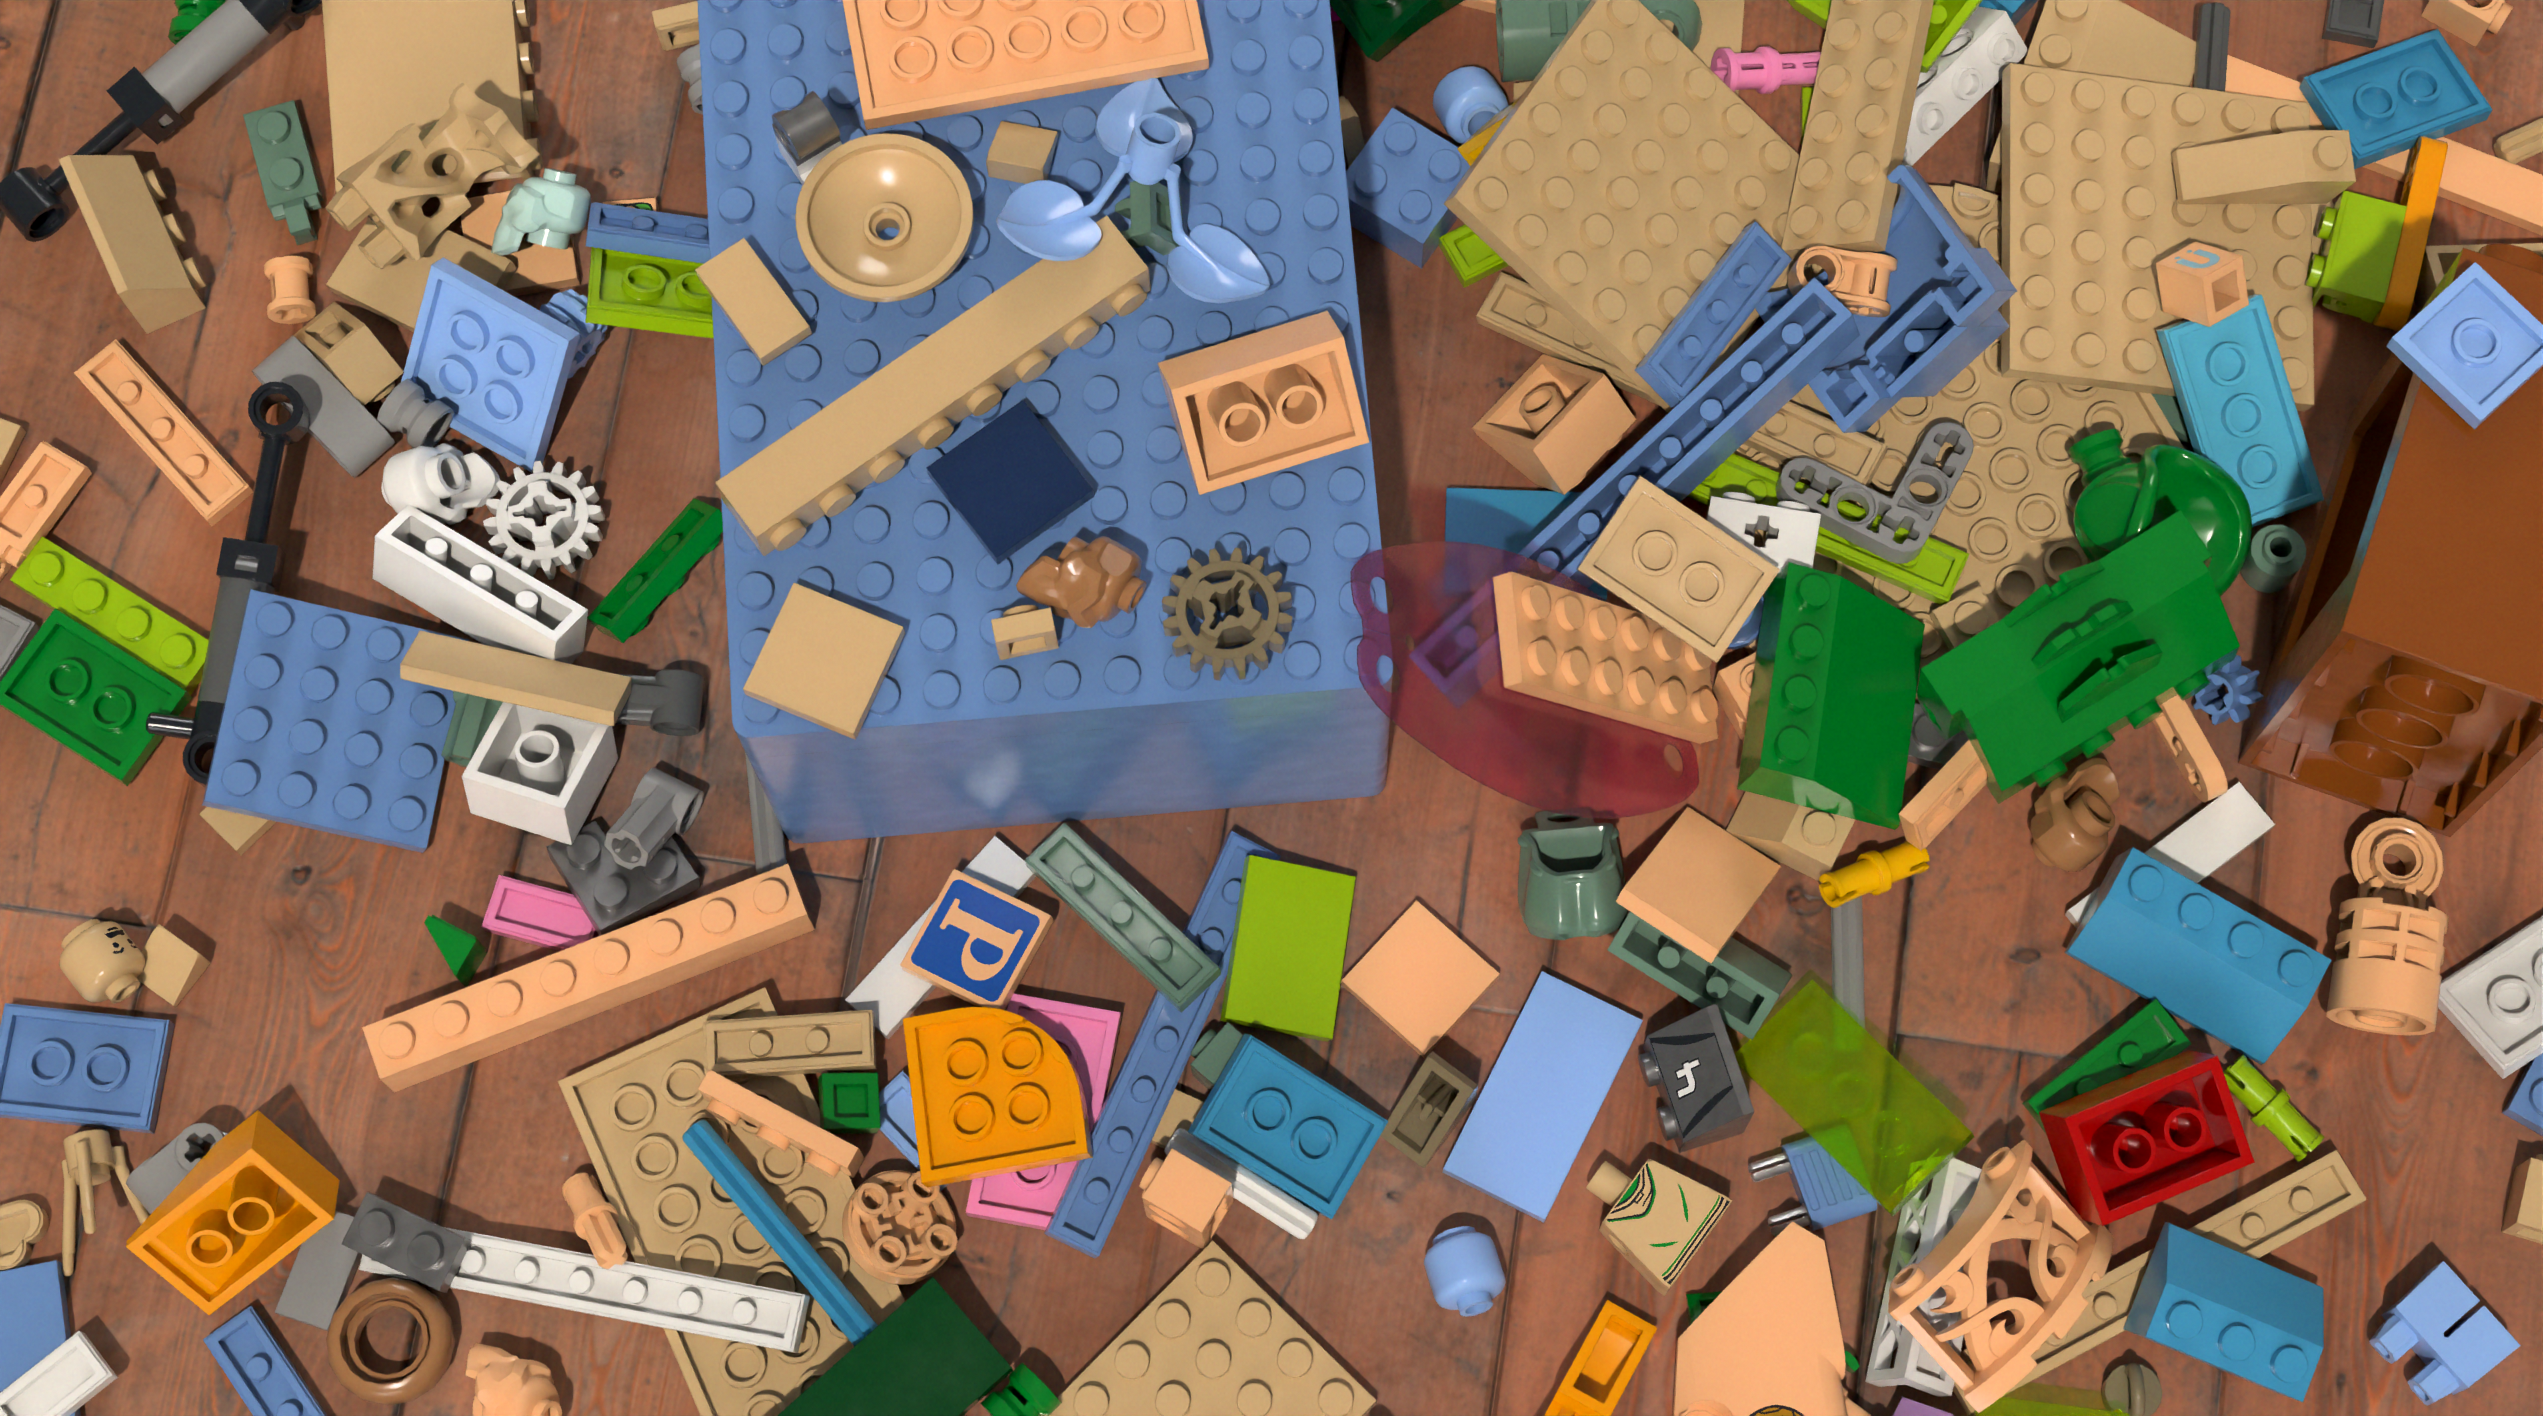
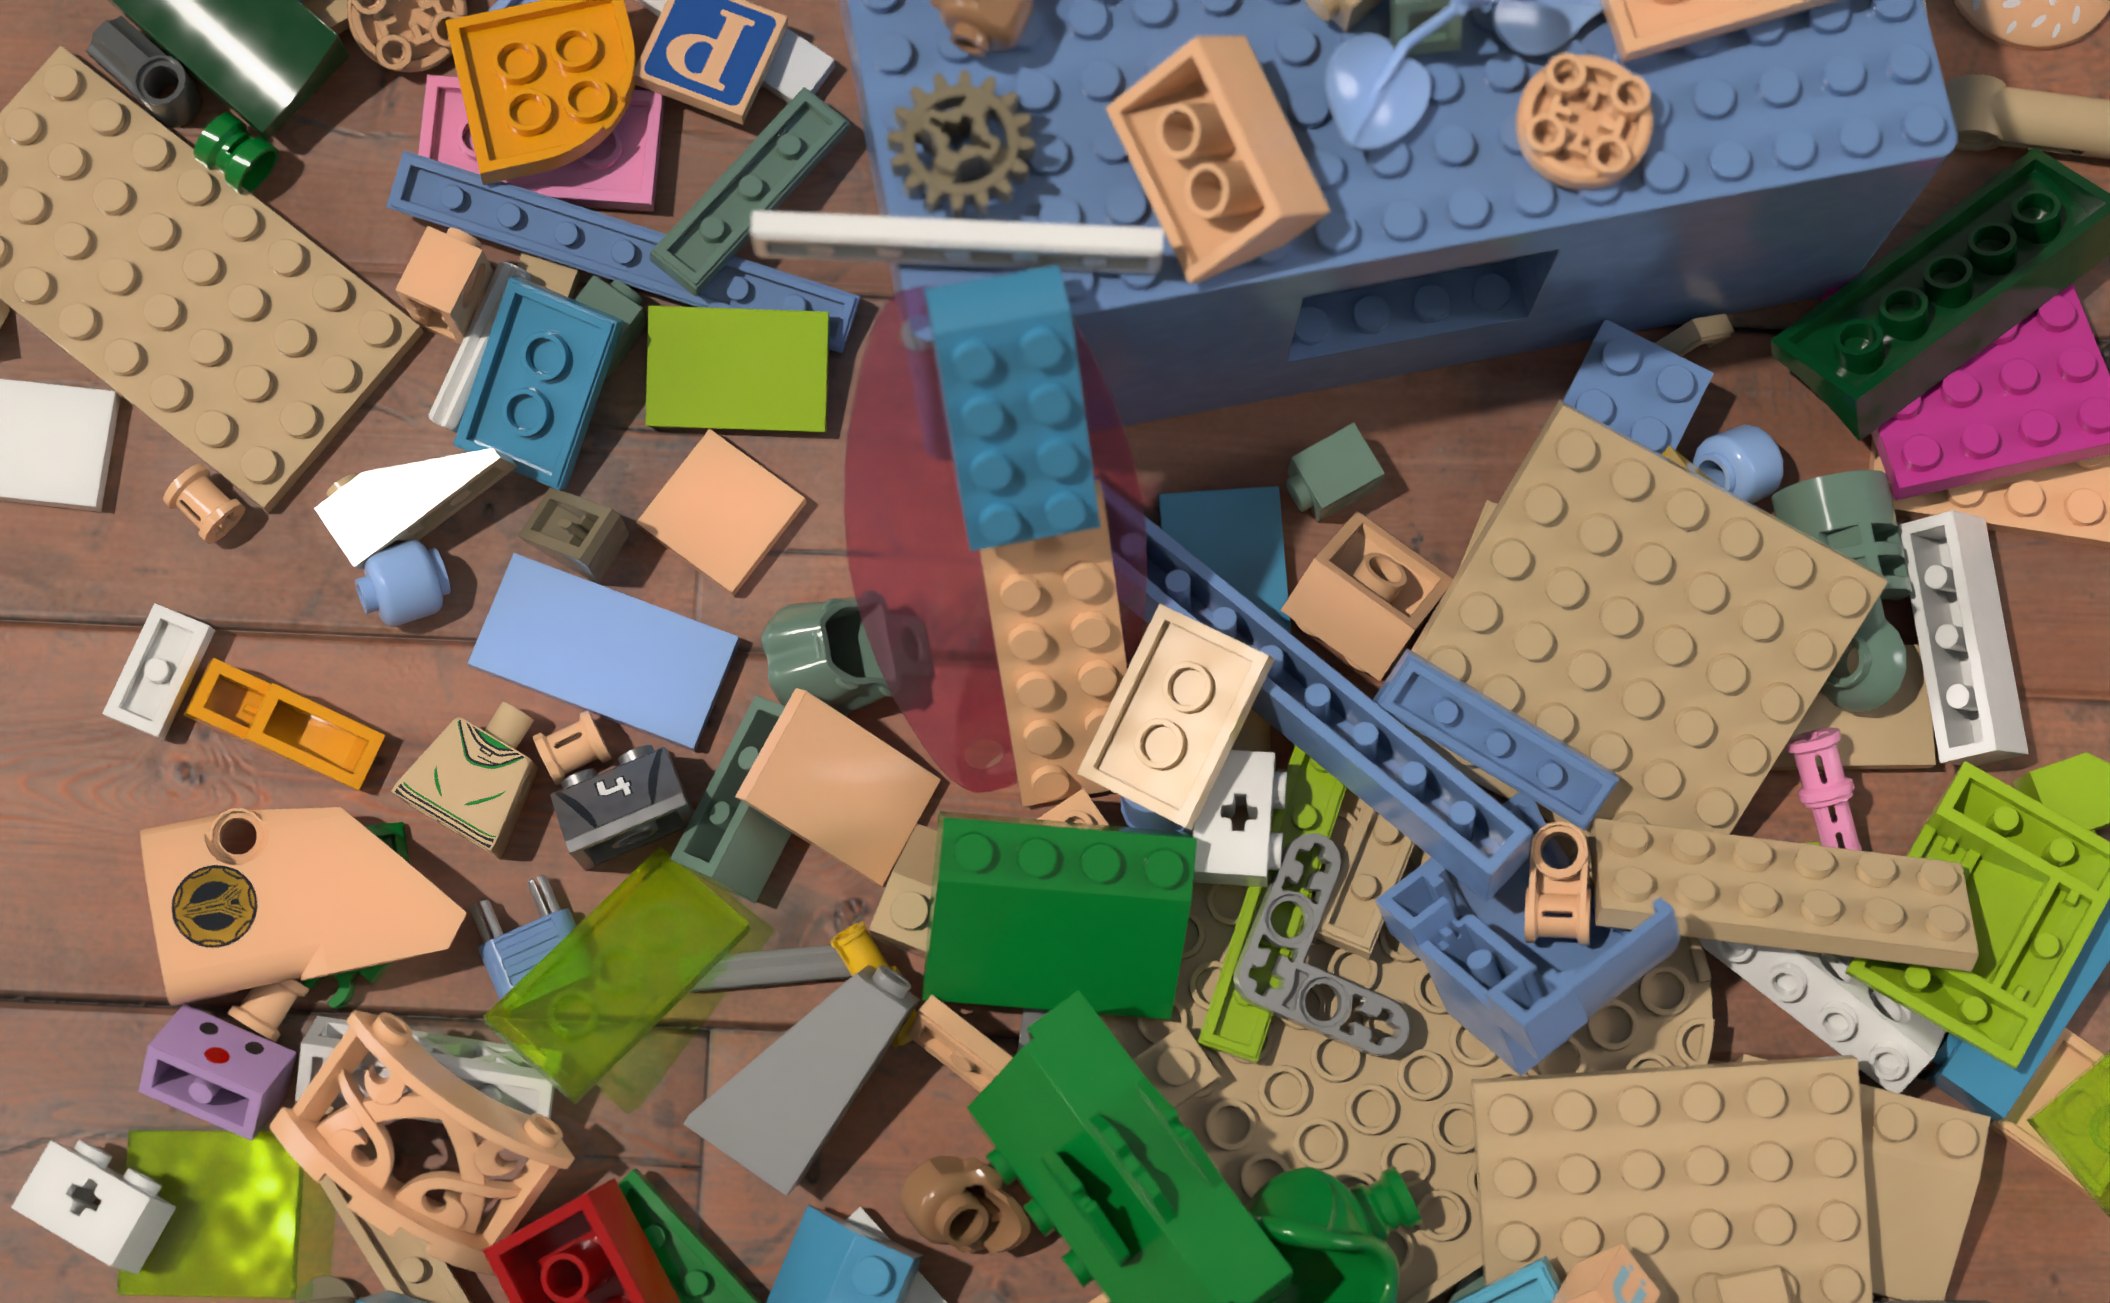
camera: 80 degrees right, 5 degrees up
(1259, 105) = (1584, 121): none -> light nougat tile
(1318, 627) = (957, 242): none -> white tile
(1390, 1267) = (406, 500): none -> slope
(1441, 438) = (1333, 473): none -> sand green brick
(1454, 610) = (1013, 406): none -> dark azure brick
(1618, 1115) = (572, 747): none -> light nougat bush
(1959, 936) = (801, 1087): none -> light grey slope

